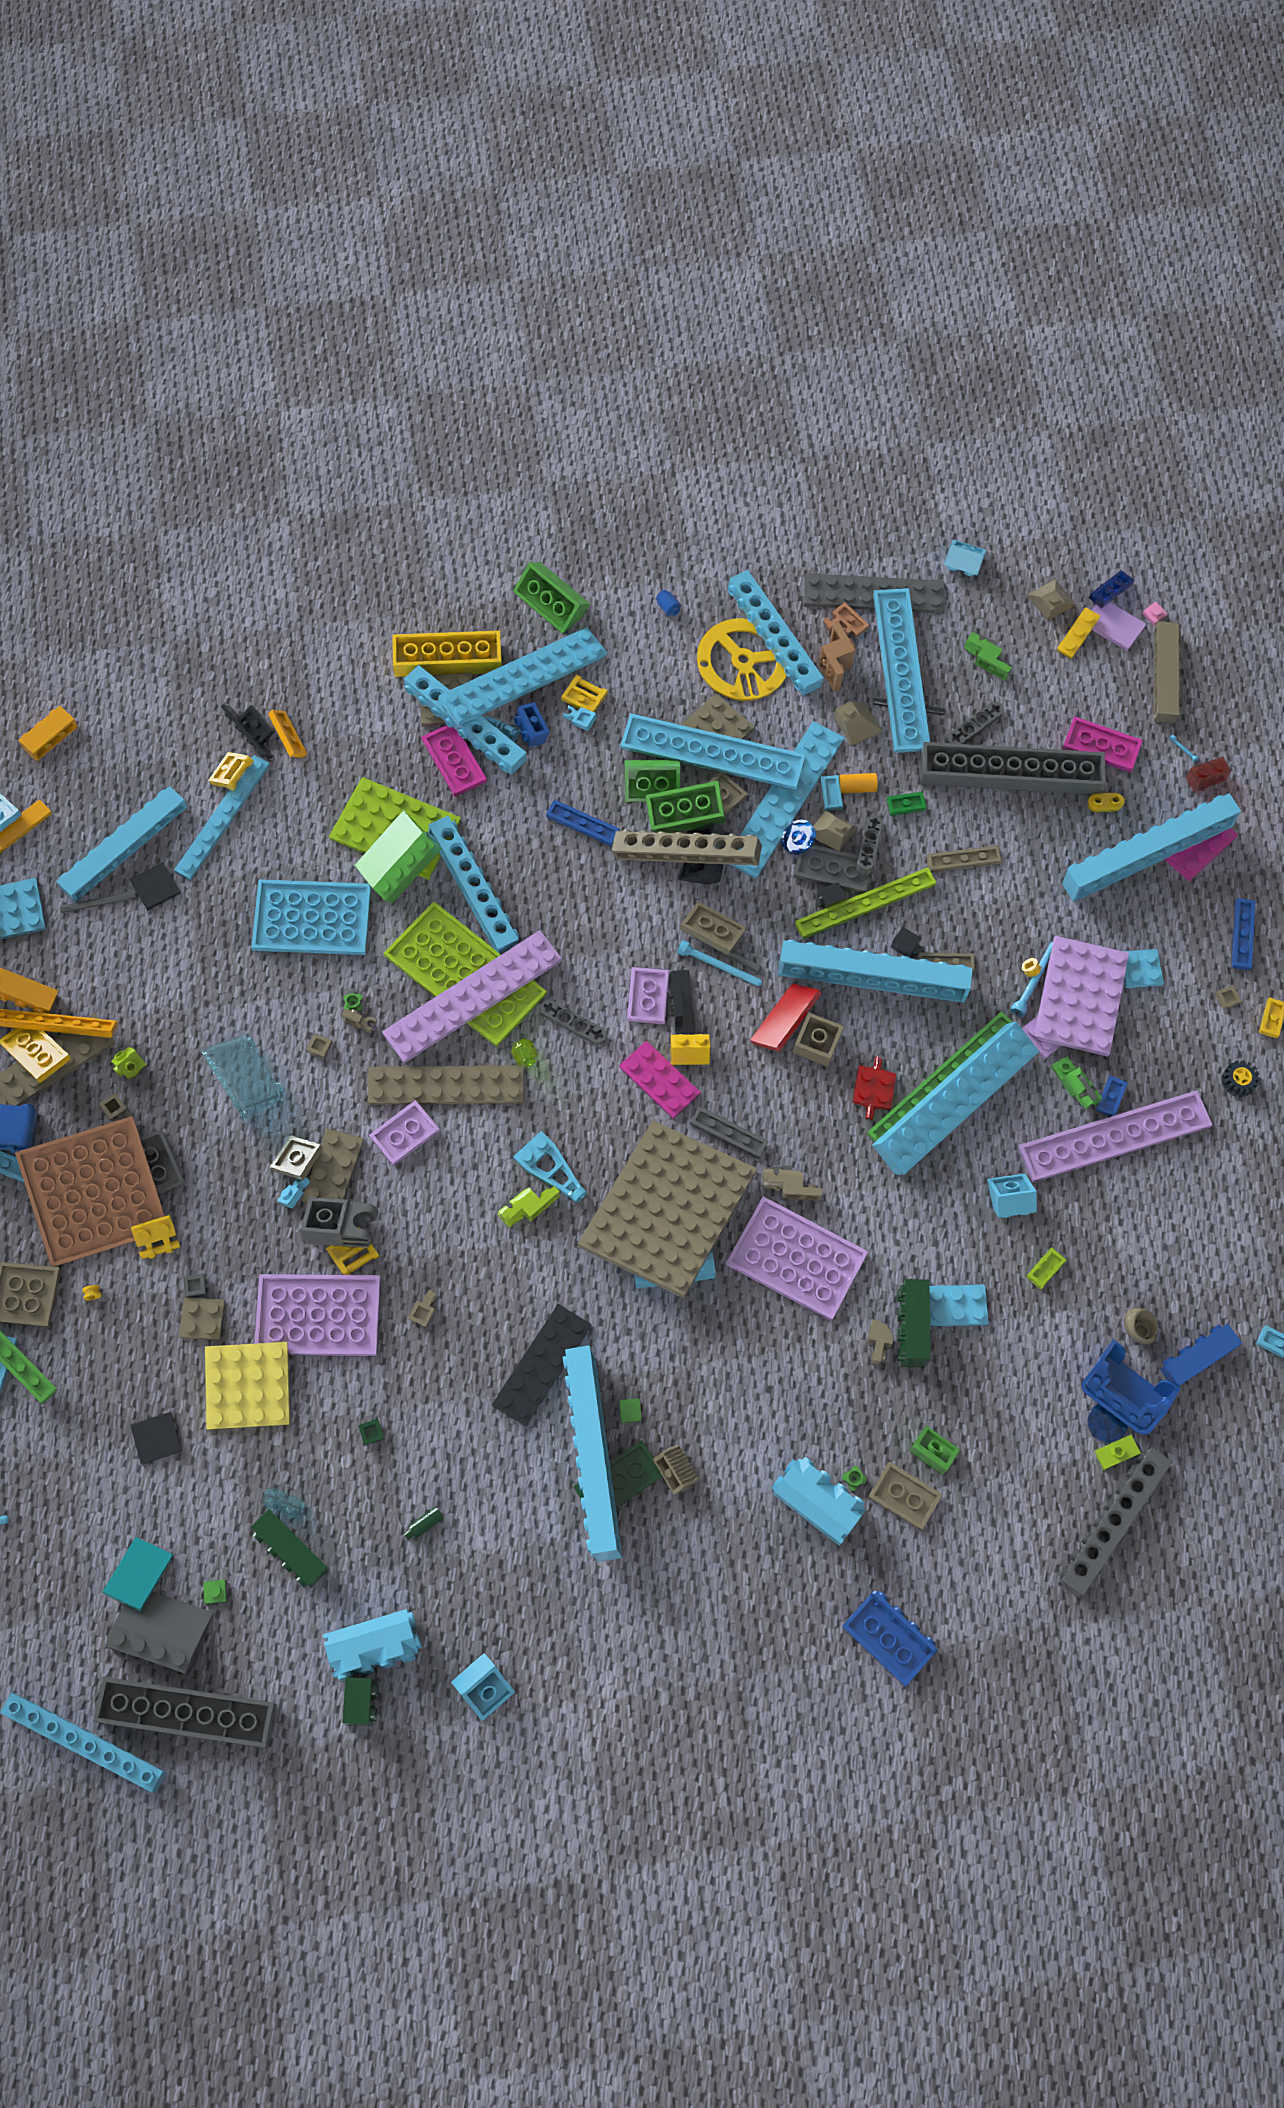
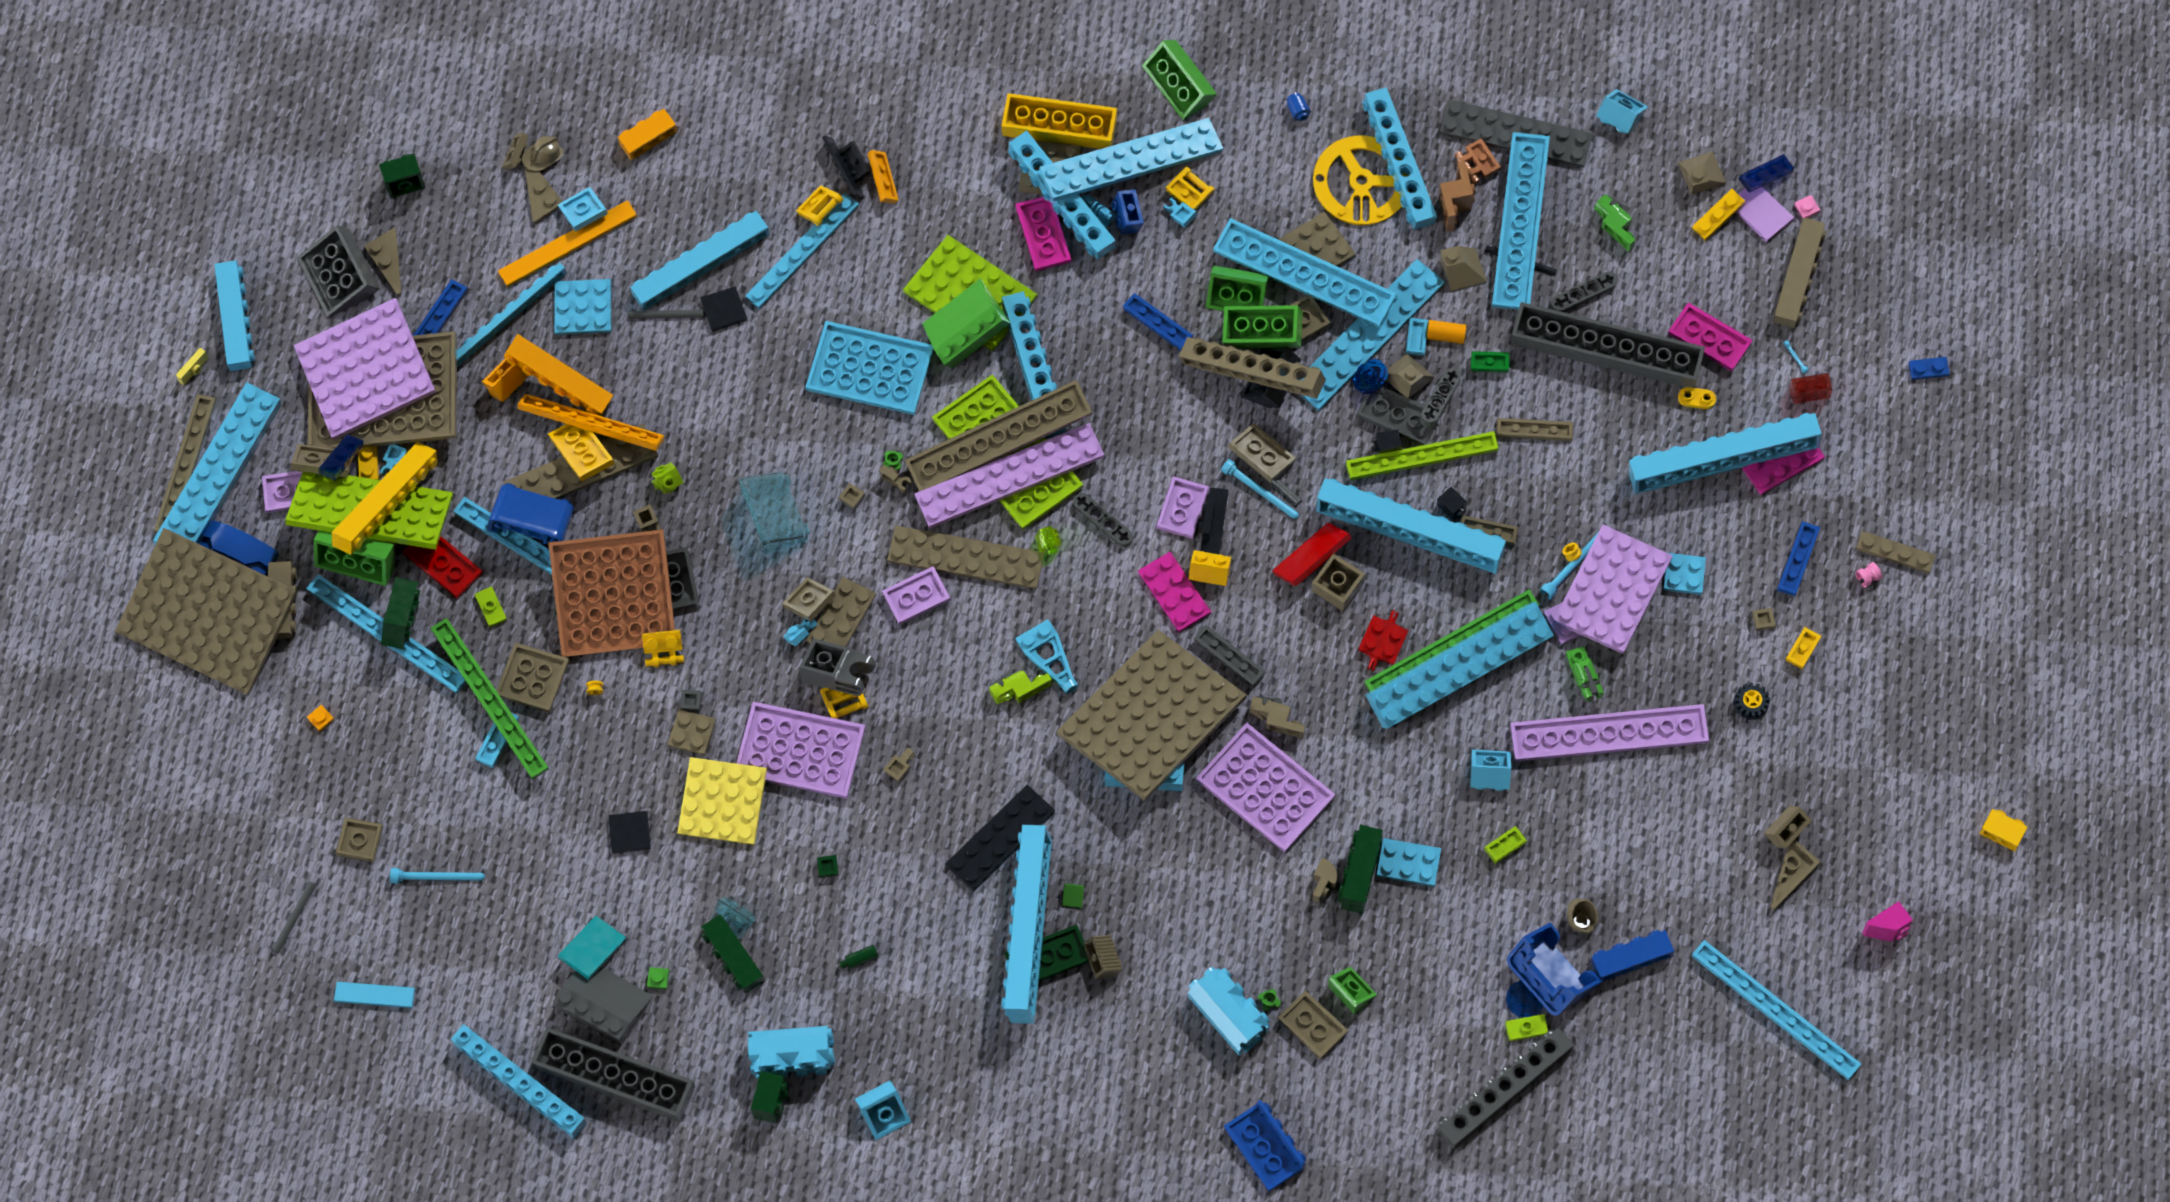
camera: 20 degrees right, 0 degrees up
(454, 959) = (999, 436): none -> dark tan plate
(1111, 1096) = (1616, 693): blue plate -> none

